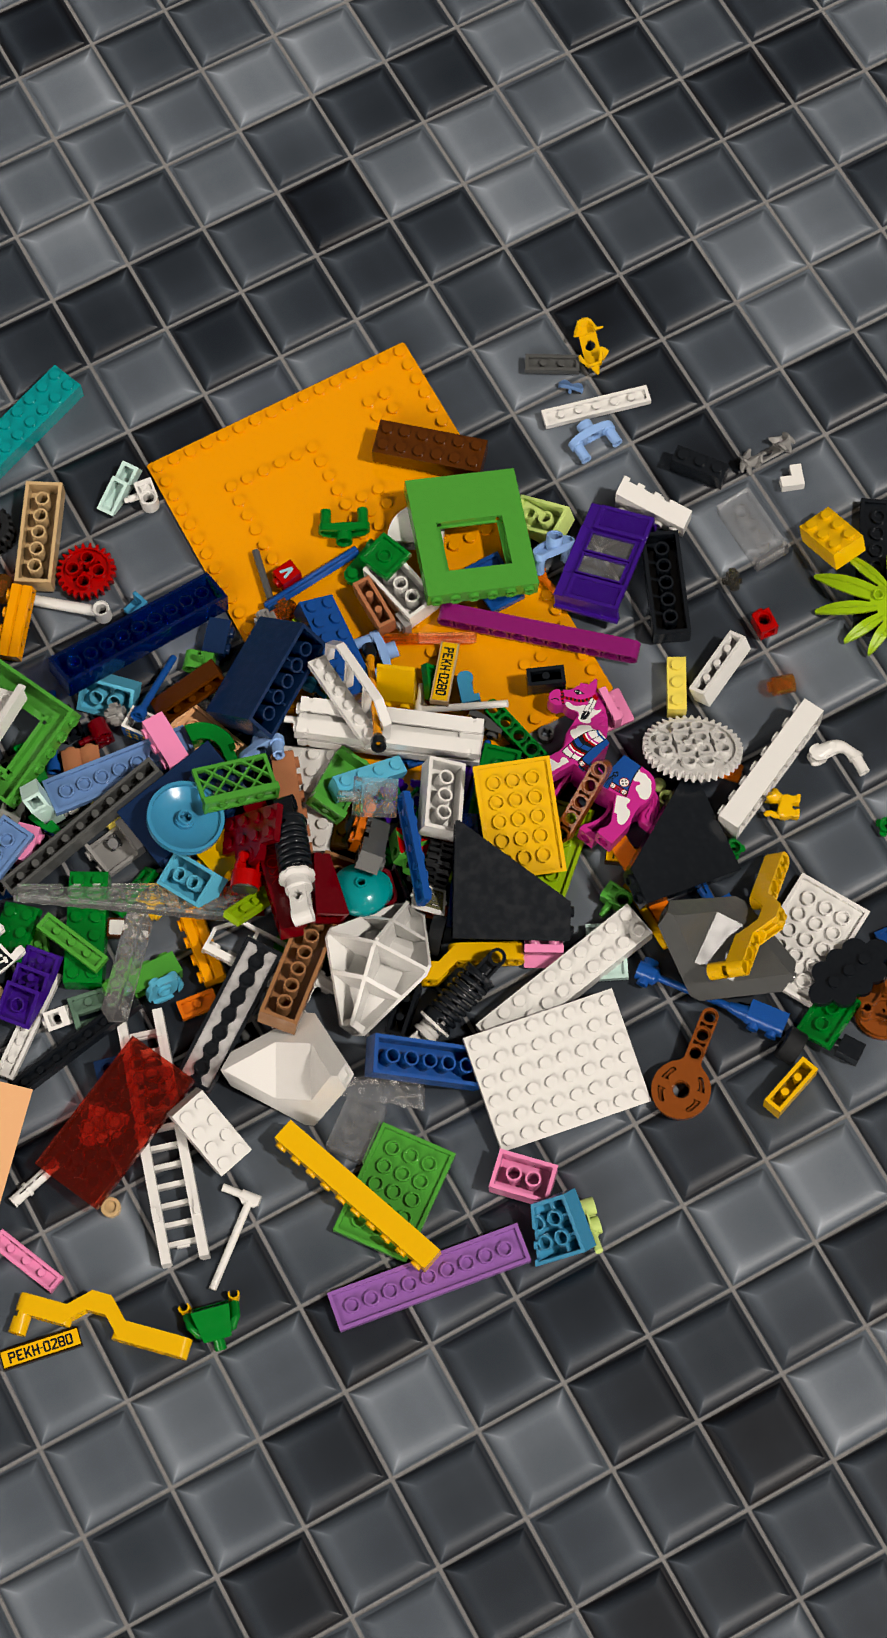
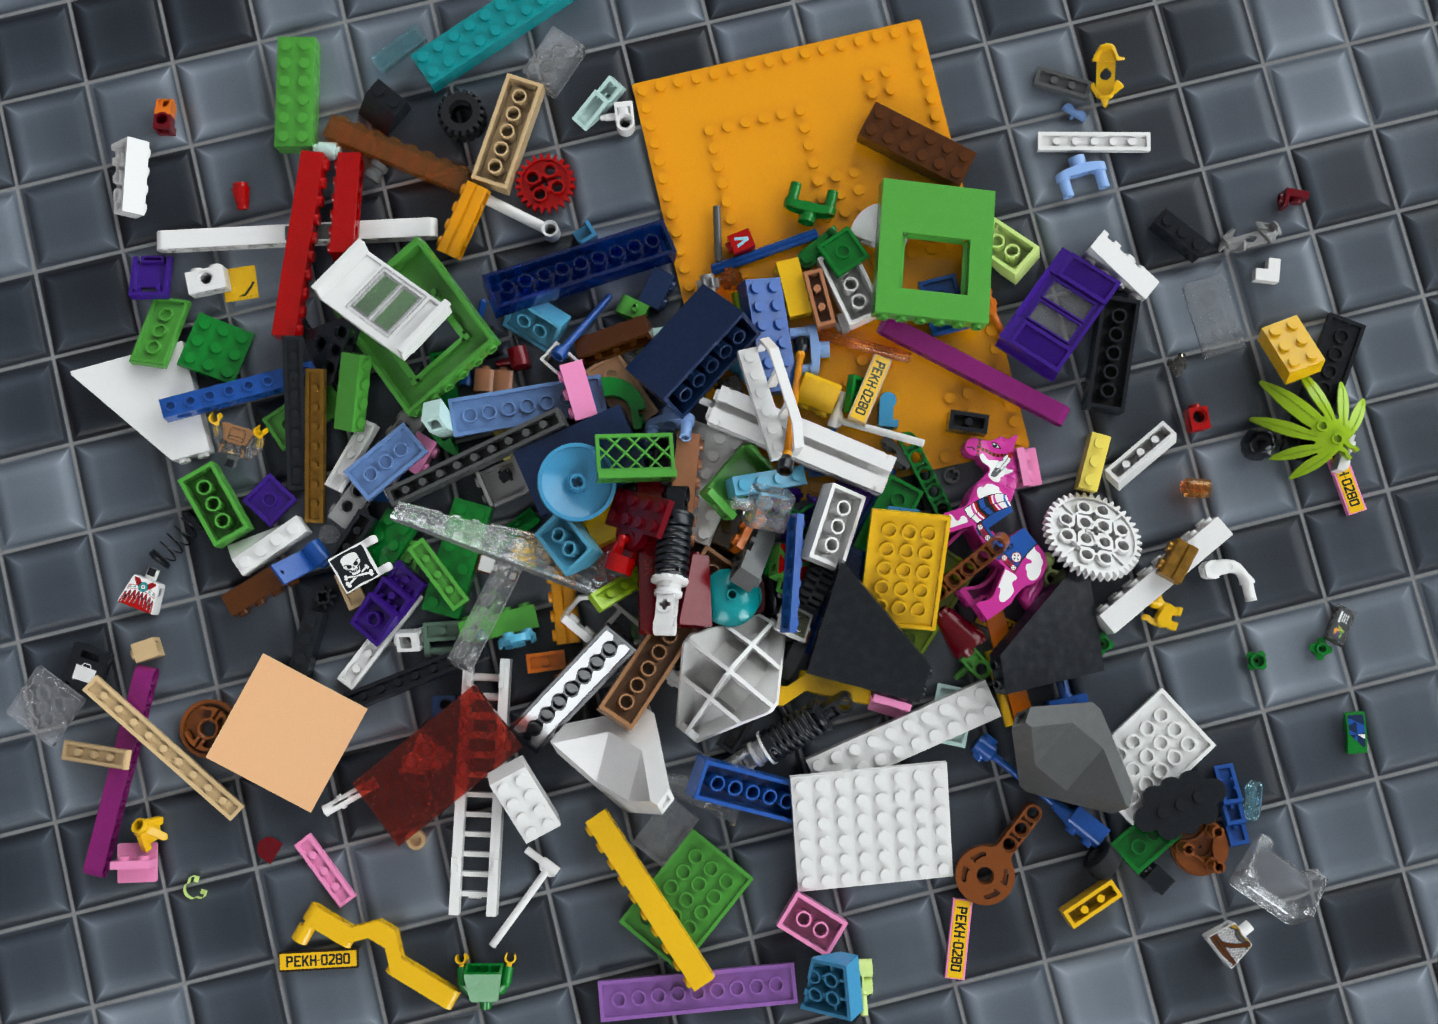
camera: 10 degrees right, 15 degrees up
(68, 461) = (554, 61): none -> clear brick
(115, 714) = (537, 344): light grey gear -> none
(349, 603) = (793, 288): none -> yellow brick
(555, 544) = (1015, 285): light blue connector -> none
(590, 870) = (959, 633): none -> dark red cone
(673, 1159) = (958, 938): none -> tile
(769, 923) = (1122, 745): yellow beam -> none
(775, 746) = (1176, 560): none -> pearl gold brick
(796, 407) = (1291, 196): none -> dark red bracket
(828, 631) = (1258, 444): none -> black hair

